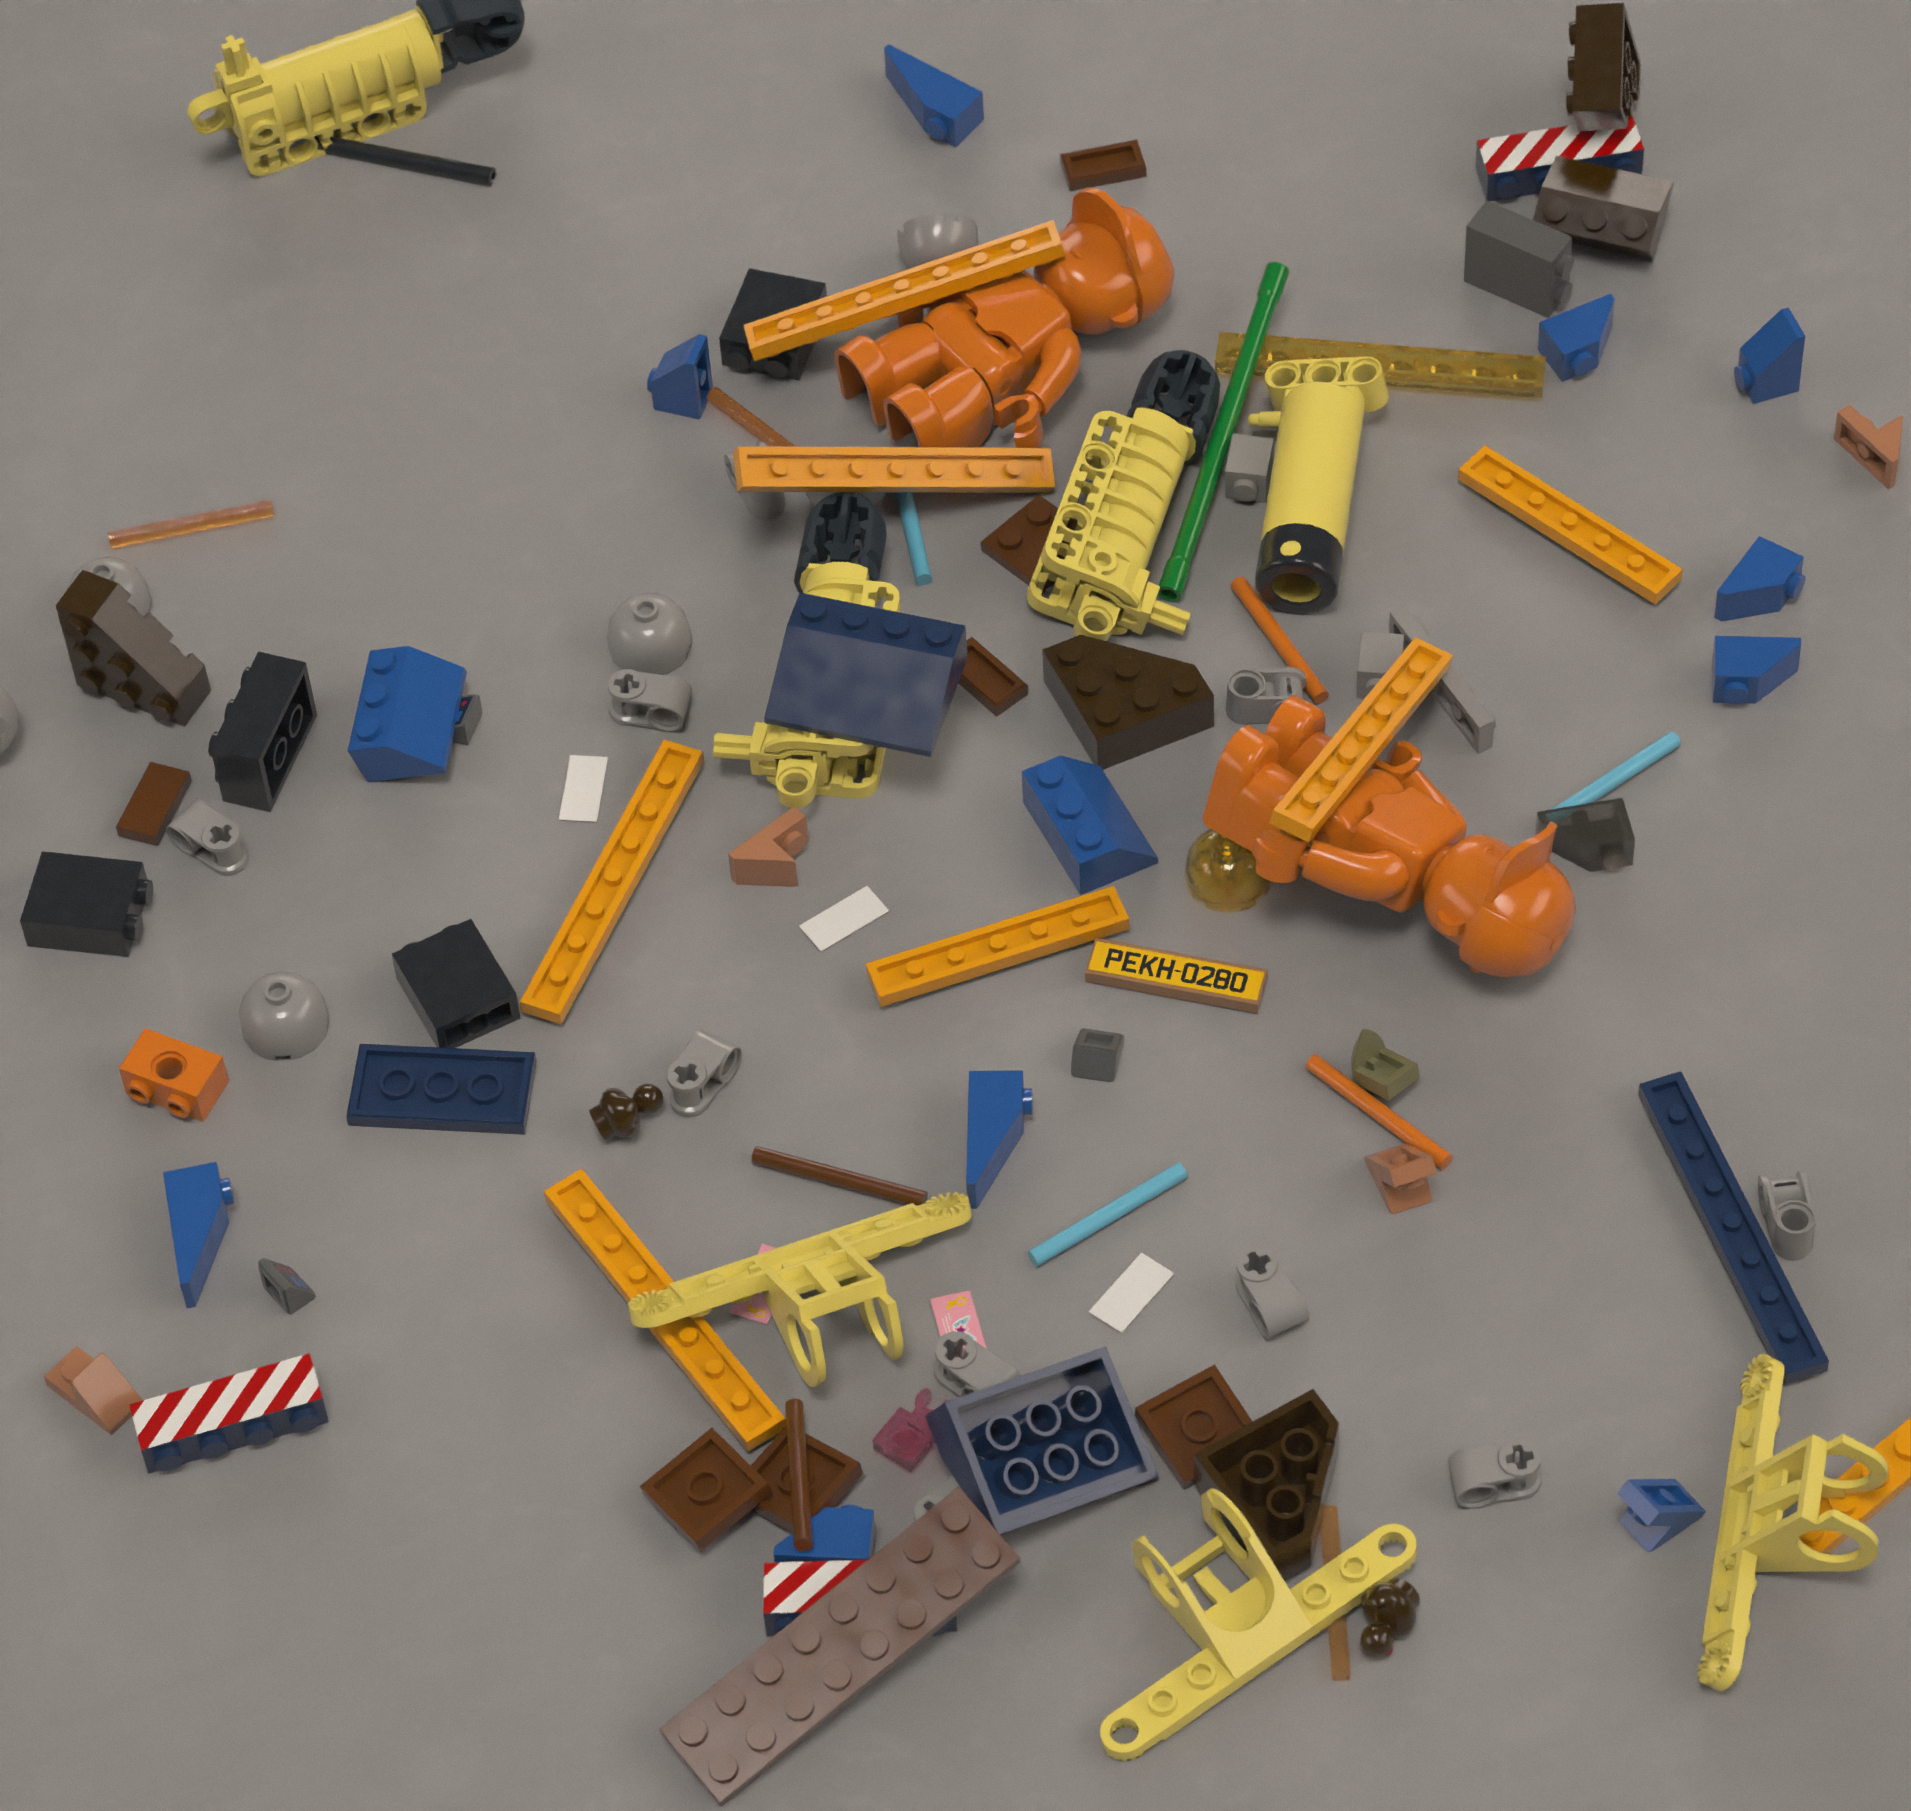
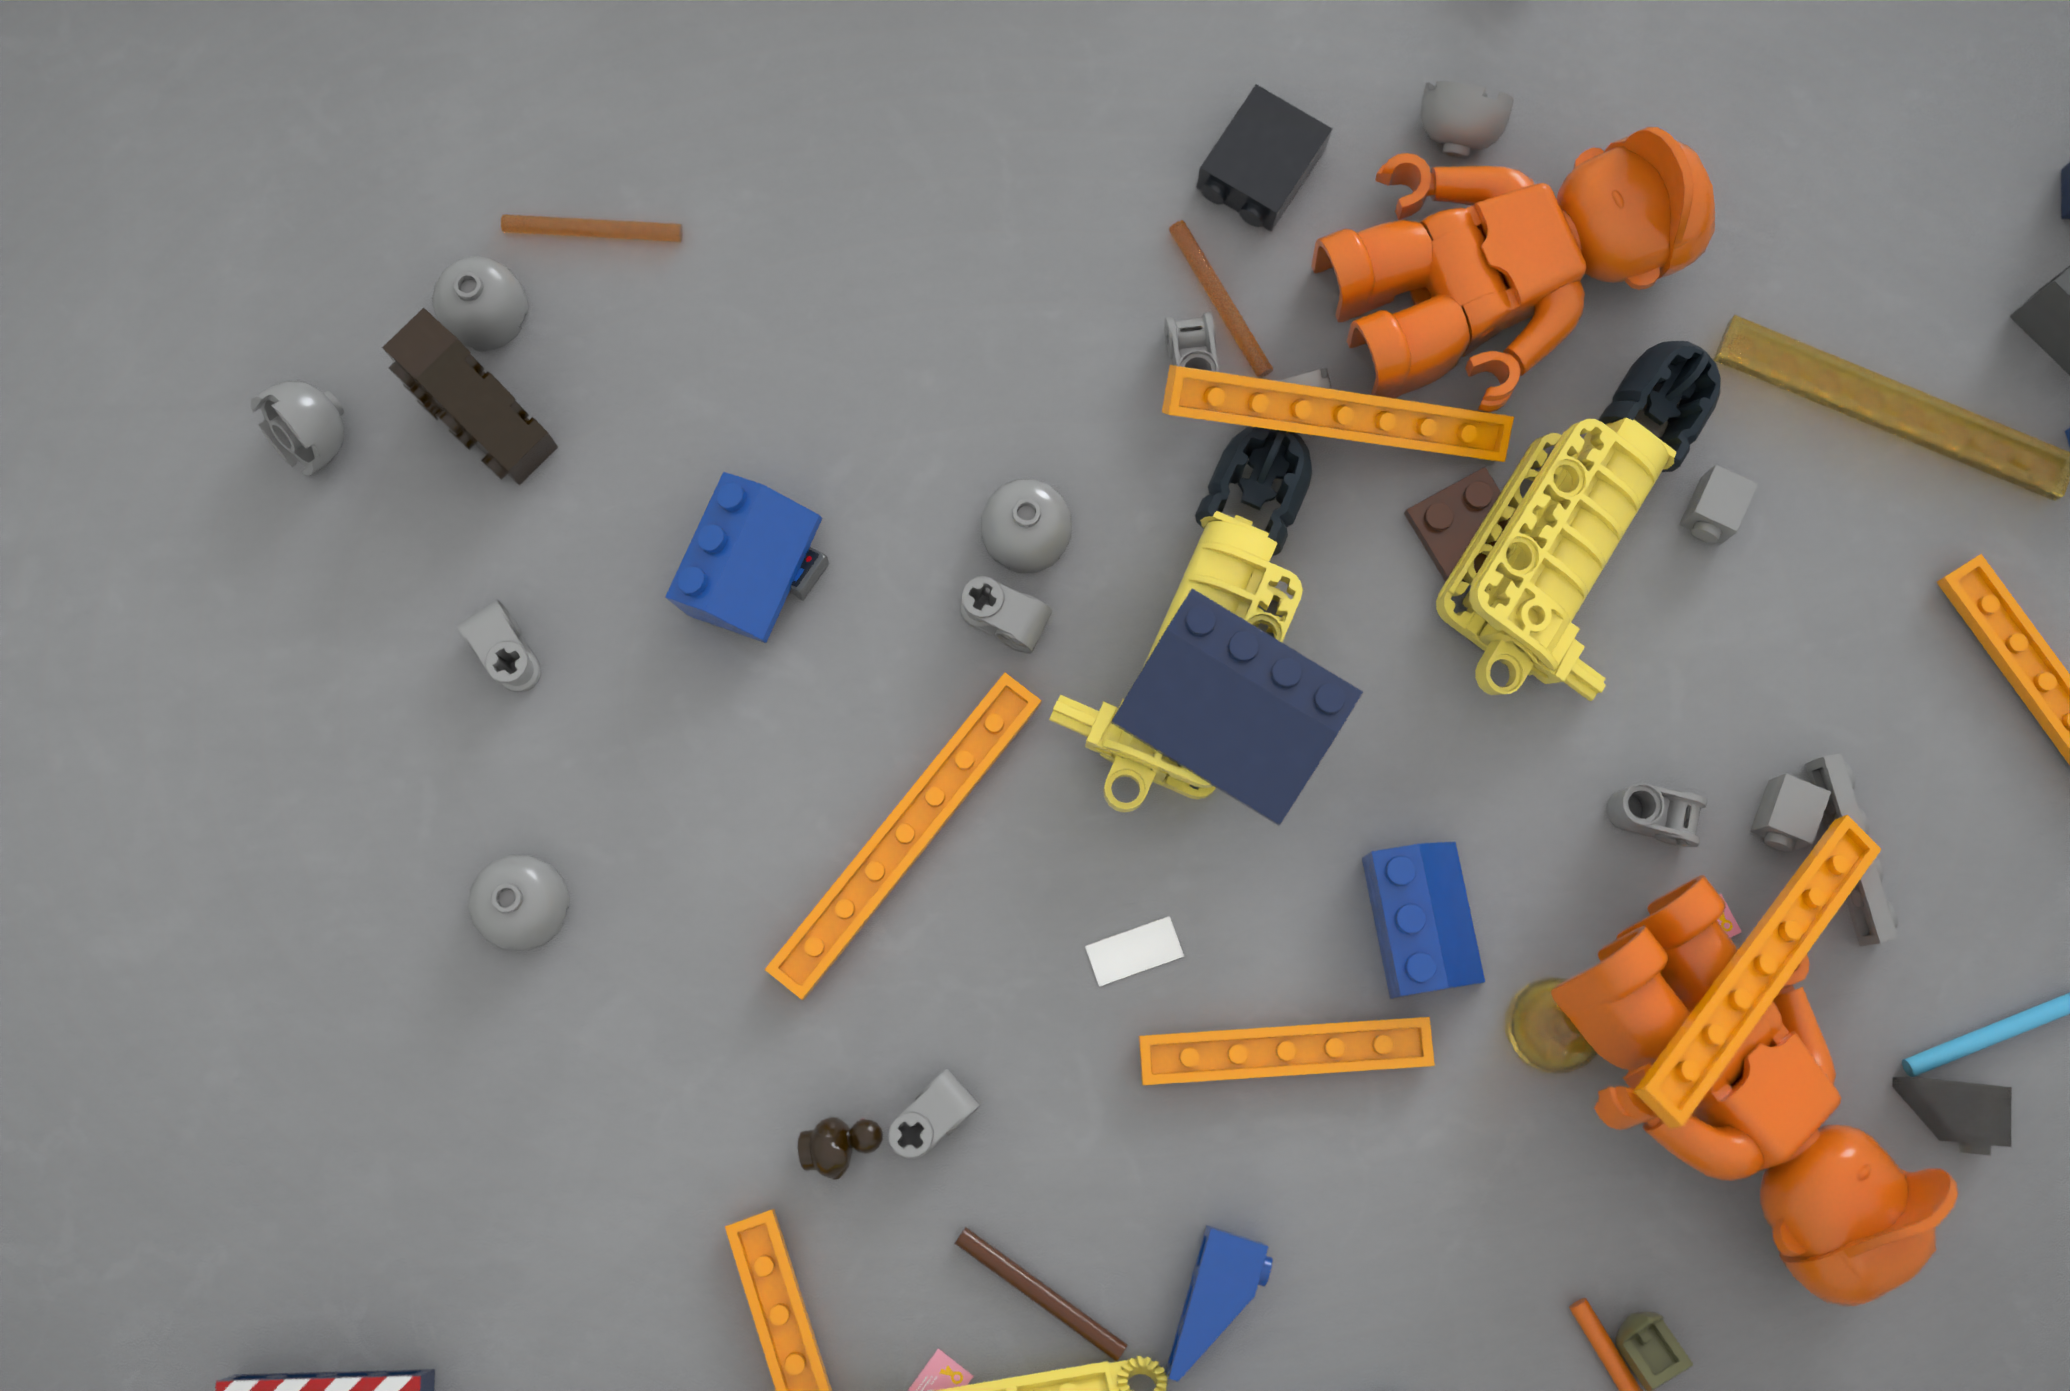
camera: 10 degrees right, 25 degrees up
(86, 904) = (351, 695): black brick -> none
(93, 1388) = (200, 1320): nougat slope -> none
(153, 803) = (459, 579): reddish brown tile -> none
(157, 1058) = (409, 957): orange brick -> none
(198, 1222) = (356, 1142): blue slope -> none
(263, 731) = (585, 538): black brick -> none
(285, 1285) = (430, 1252): dark grey slope -> none
(441, 1089) = (658, 1044): dark blue tile -> none
(456, 985) = (703, 922): black brick -> none
(583, 788) = (907, 695): white sticker -> none
(682, 379) = (1147, 205): blue slope -> none
(768, 854) = (1067, 858): nougat slope -> none
(904, 290) = (1419, 183): light orange plate -> none
(914, 538) = (1339, 464): medium azure bar -> none
(990, 680) = (1360, 666): reddish brown tile -> none
(1096, 1055) = (1353, 1218): dark grey slope -> none
(1103, 165) = (1665, 49): reddish brown tile -> none
(1125, 698) = (1504, 770): dark brown brick -> none
(1176, 975) = (1465, 1144): tile -> none
(1178, 565) = (1802, 292): green piece -> none
(1278, 637) = (1689, 732): orange bar -> none
(1312, 475) = (1787, 545): light yellow piece -> none

